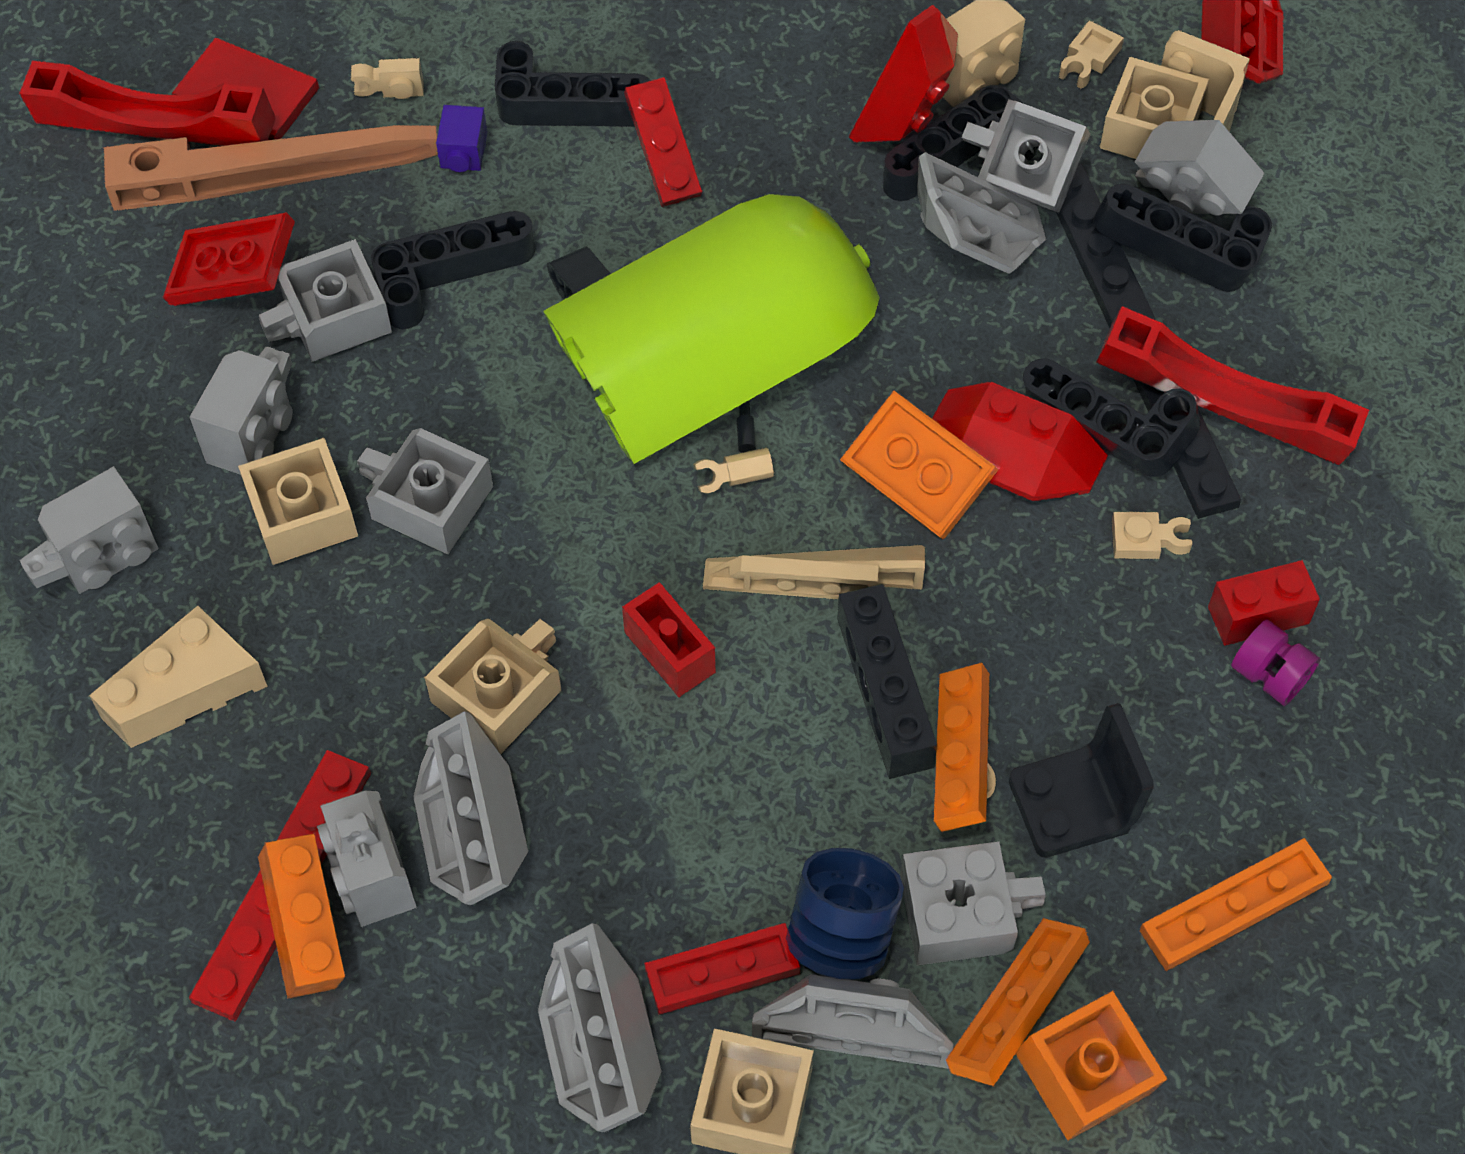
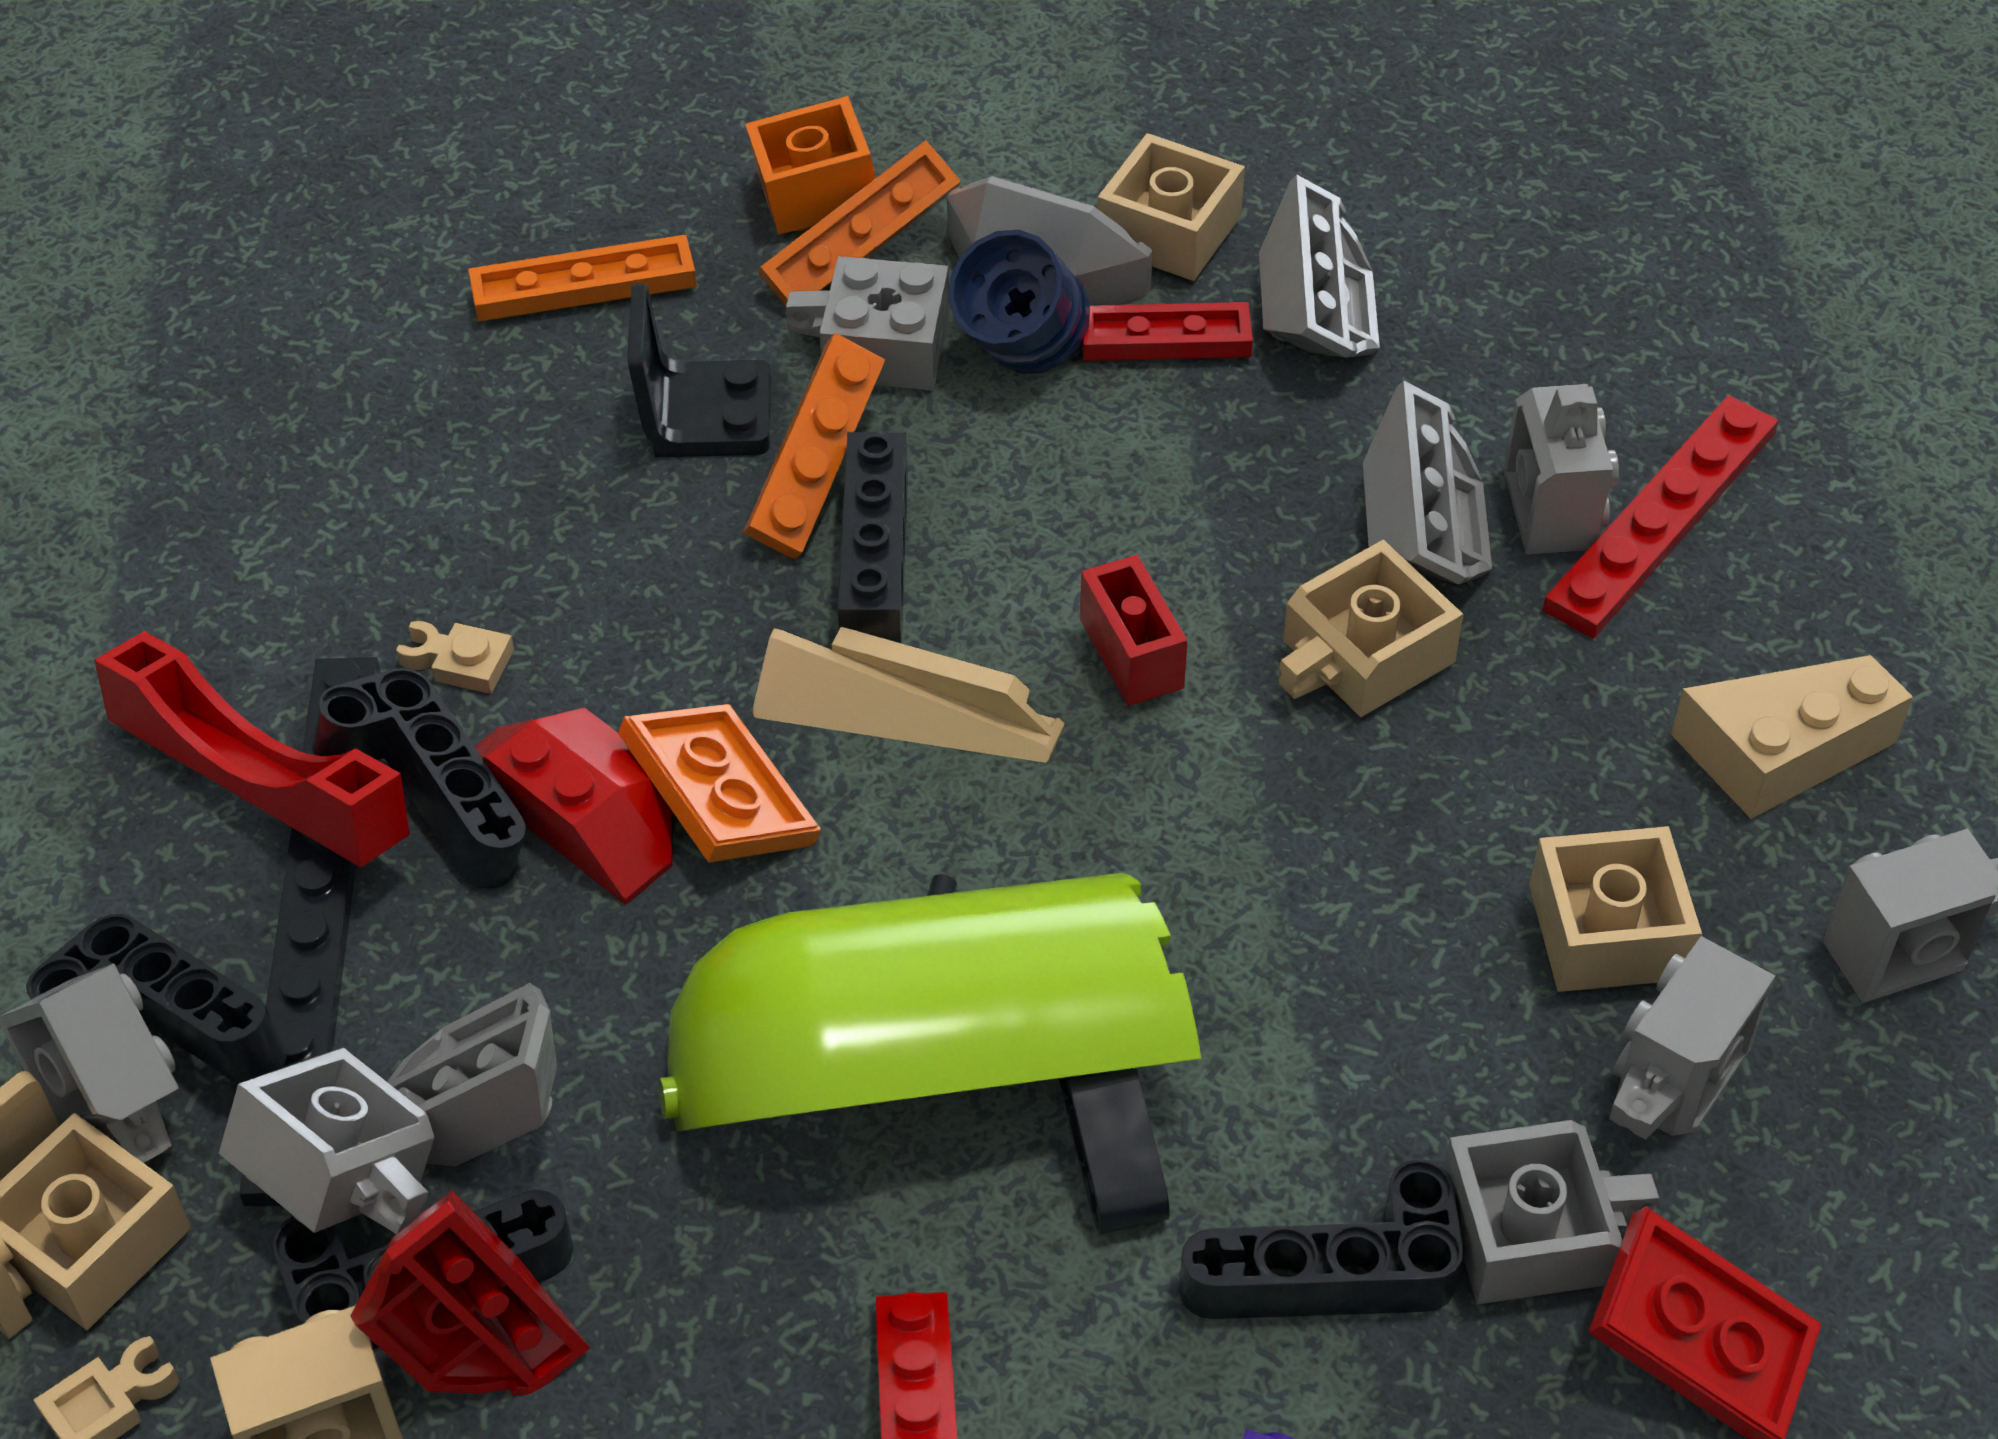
camera: 165 degrees left, 10 degrees down
(301, 916) = (1644, 432): orange brick -> none
(426, 488) = (1424, 889): light grey hinge -> none
(737, 469) = (971, 844): tan bar -> none
(1262, 653) = (396, 463): magenta wheel -> none
(1277, 594) = (369, 526): red brick -> none

